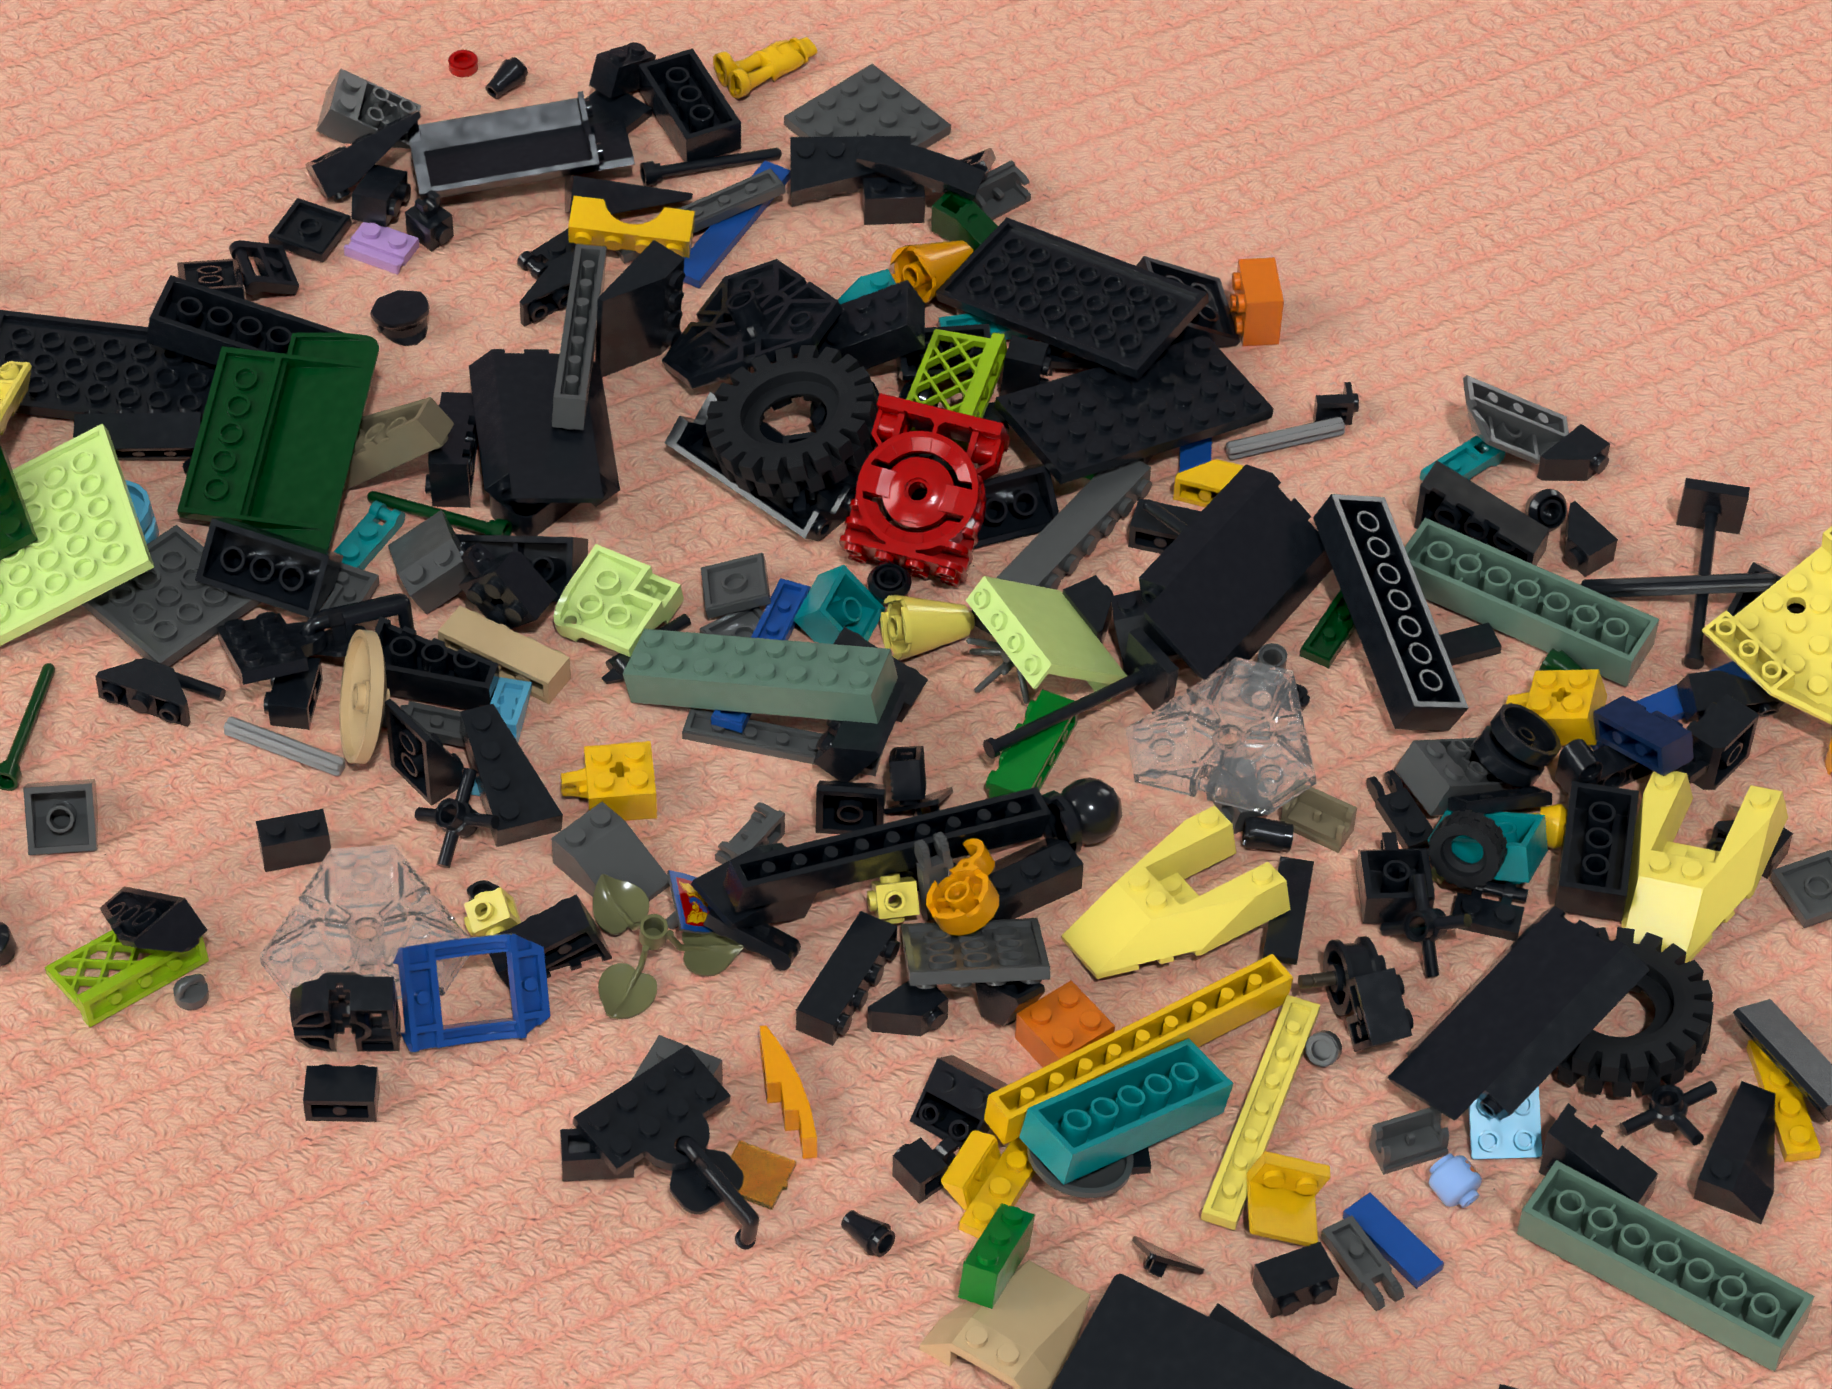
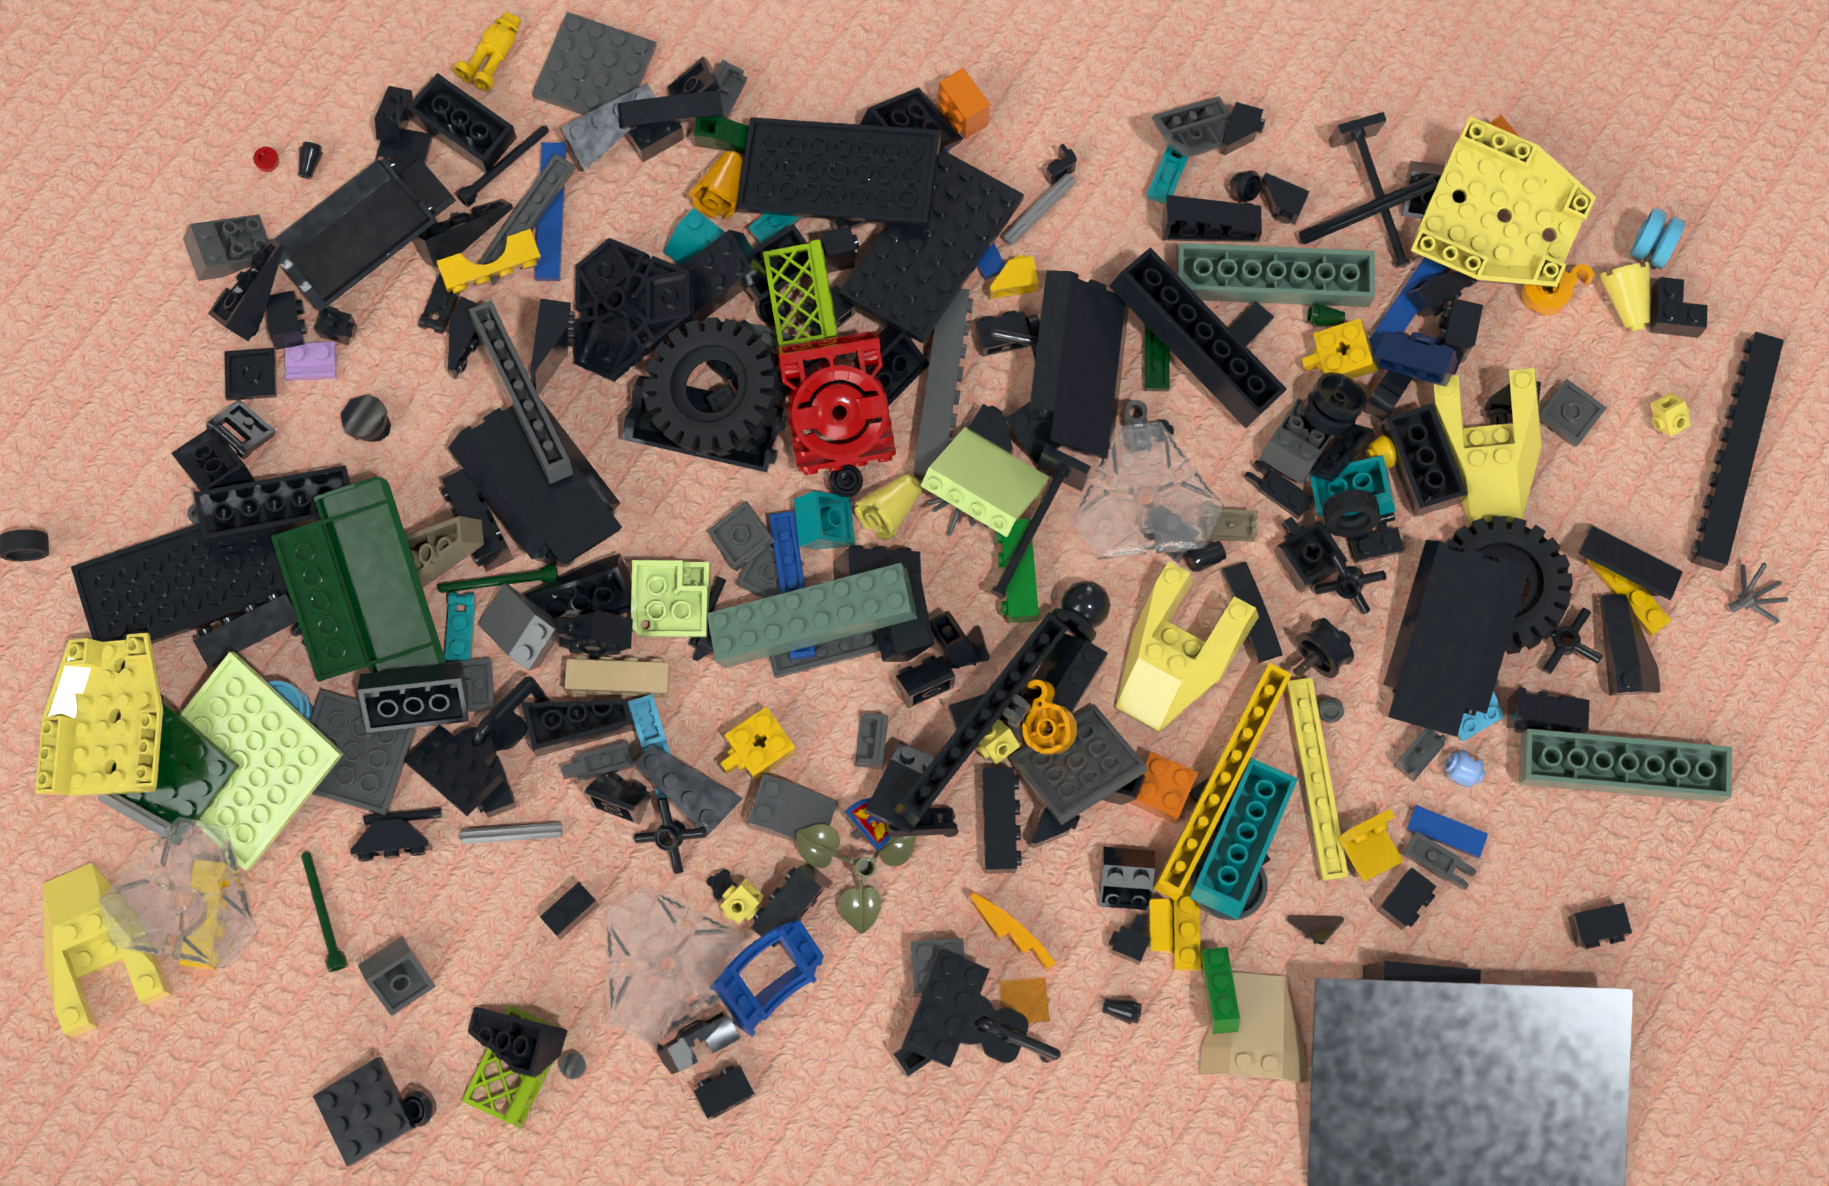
camera: 30 degrees left, 25 degrees up
(362, 696) = (555, 783): tan dish -> none
(1378, 1010) = (1361, 674): black brick -> none

